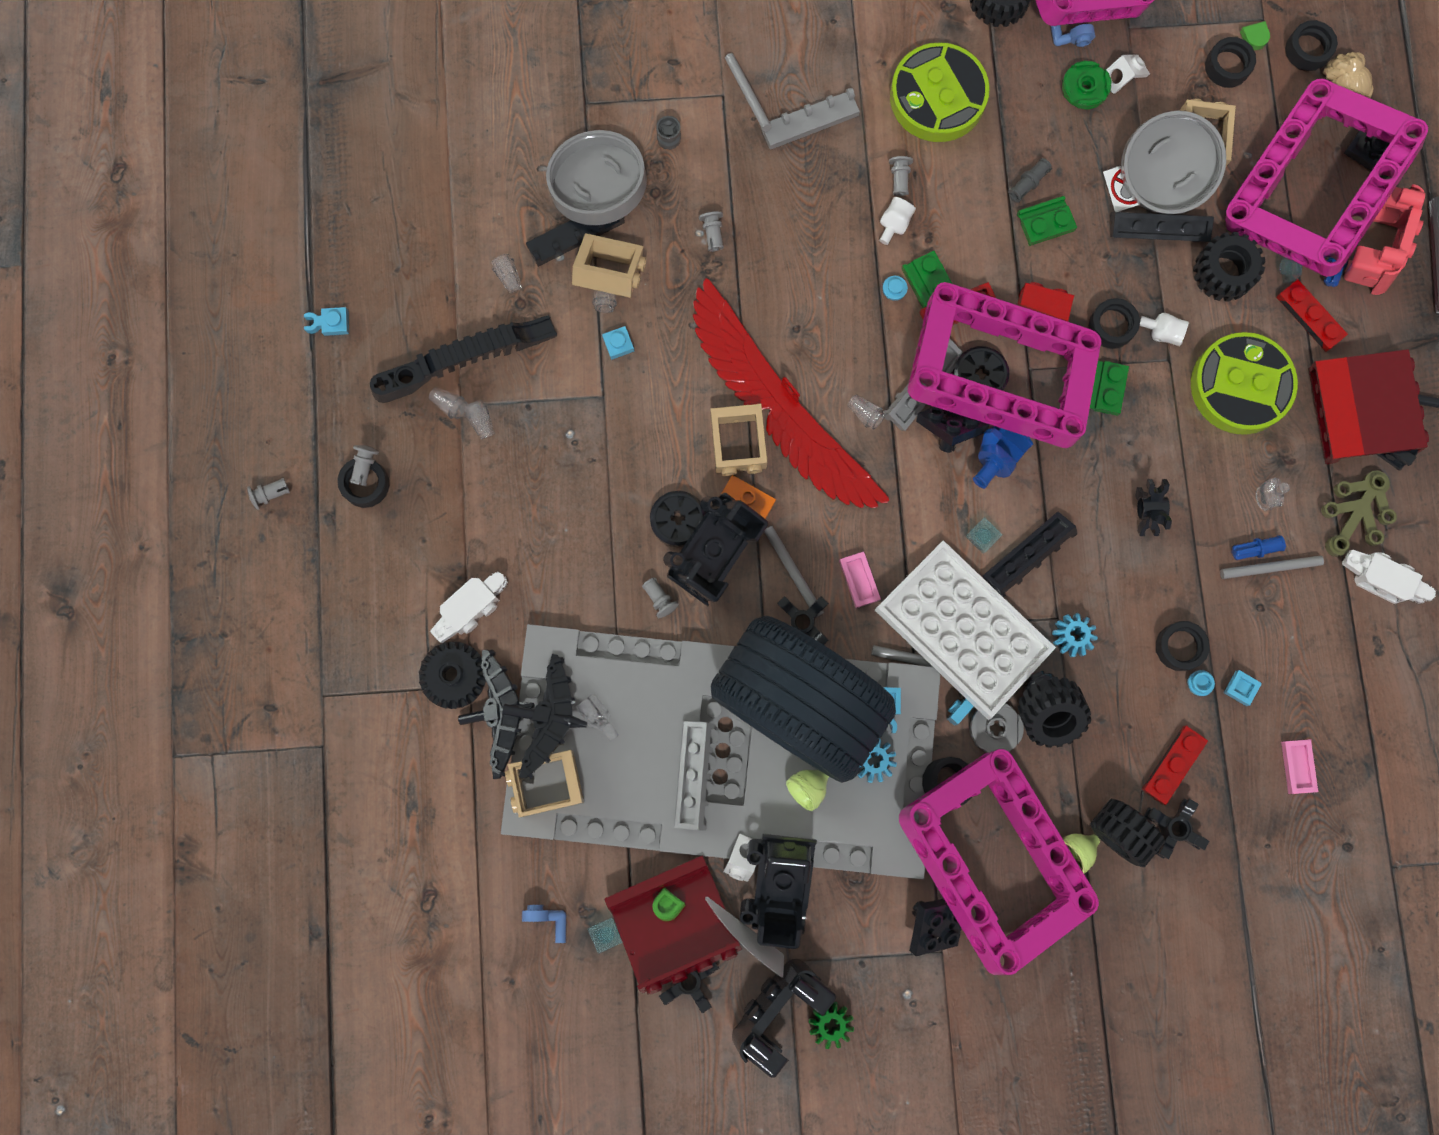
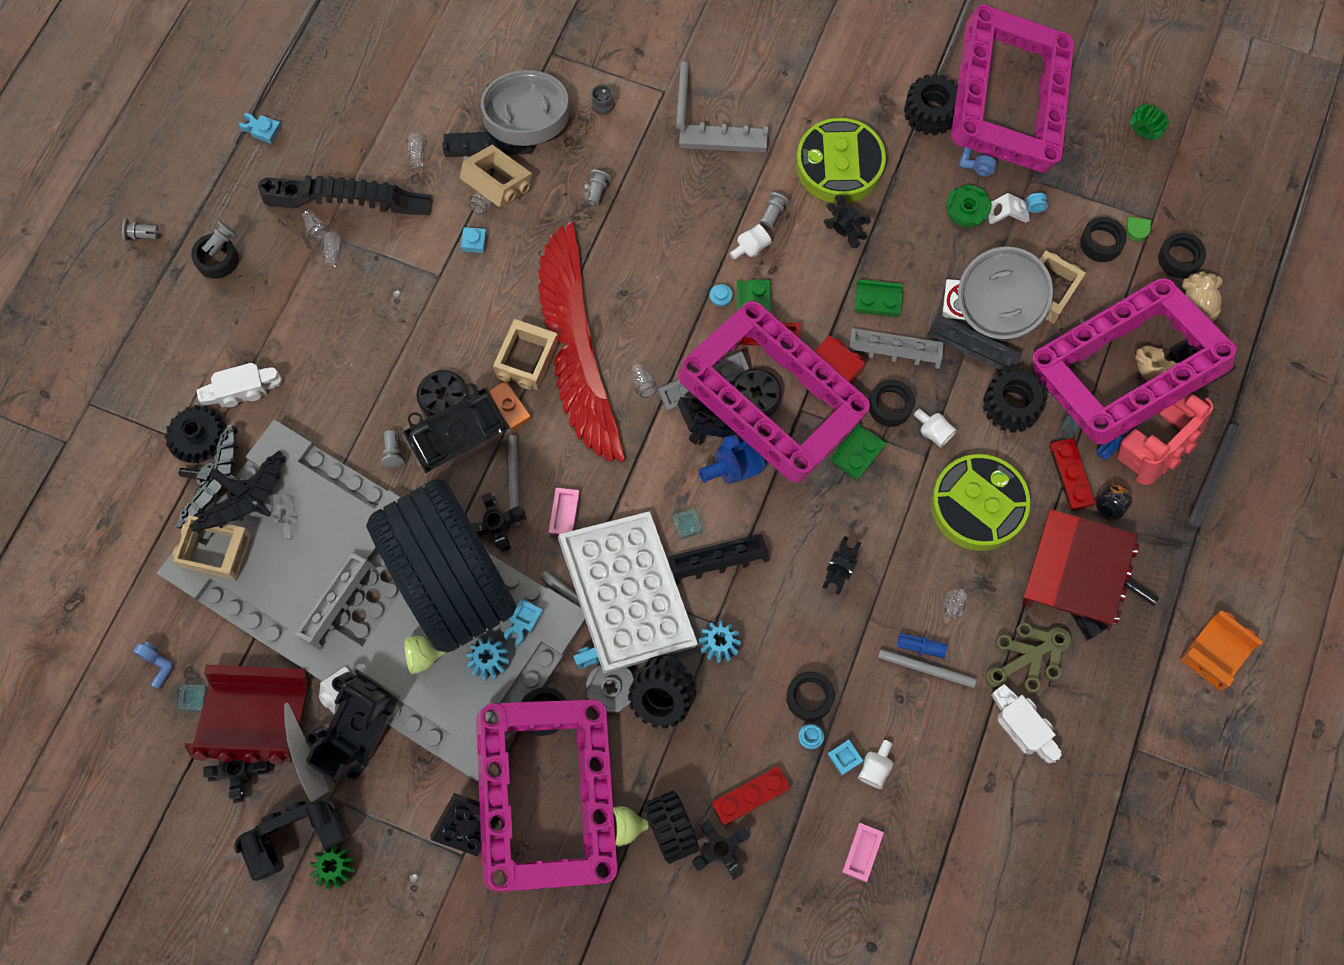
camera: 30 degrees right, 10 degrees down
(667, 906) = (254, 697): bright green tile -> none
(983, 155) = (847, 221): none -> black pin
(1030, 180) = (880, 259): dark grey pin -> none
(1089, 263) = (896, 346): none -> light grey hinge
(1150, 51) = (1037, 202): none -> medium azure bush
(1274, 681) = (877, 766): none -> white piece
(1345, 174) = (1152, 362): none -> tan hair
(1365, 325) = (1113, 501): none -> black head

